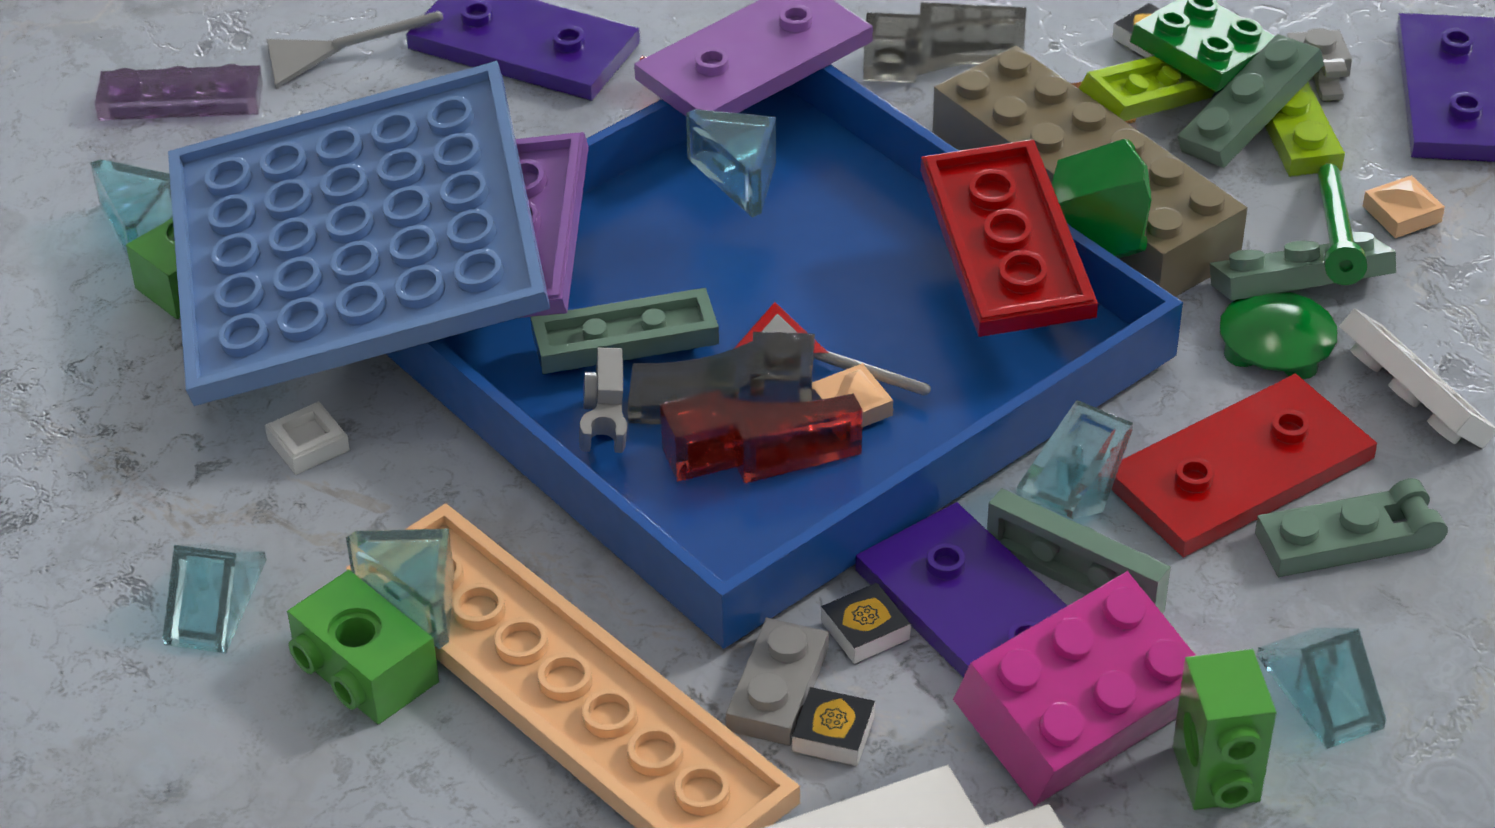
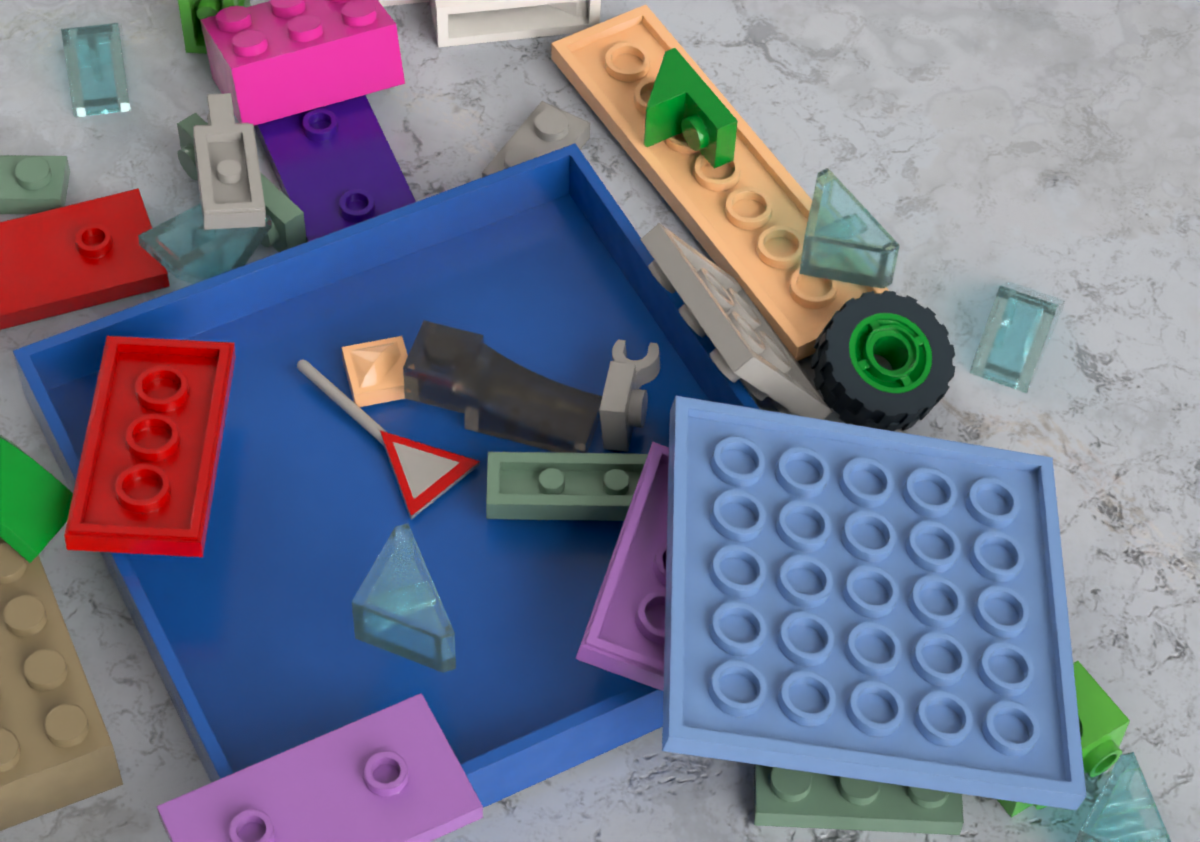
camera: 170 degrees left, 10 degrees up
(355, 489) = (902, 335): none -> black wheel
(362, 647) = (922, 236): bright green brick -> none
(508, 445) = (742, 336): none -> light grey plate
(607, 690) = (688, 106): none -> green slope
(758, 438) = (530, 334): clear red slope -> none
(833, 726) = (502, 106): tile -> none
(865, 622) = (440, 175): tile -> none
(1081, 494) = (228, 169): none -> light grey hinge

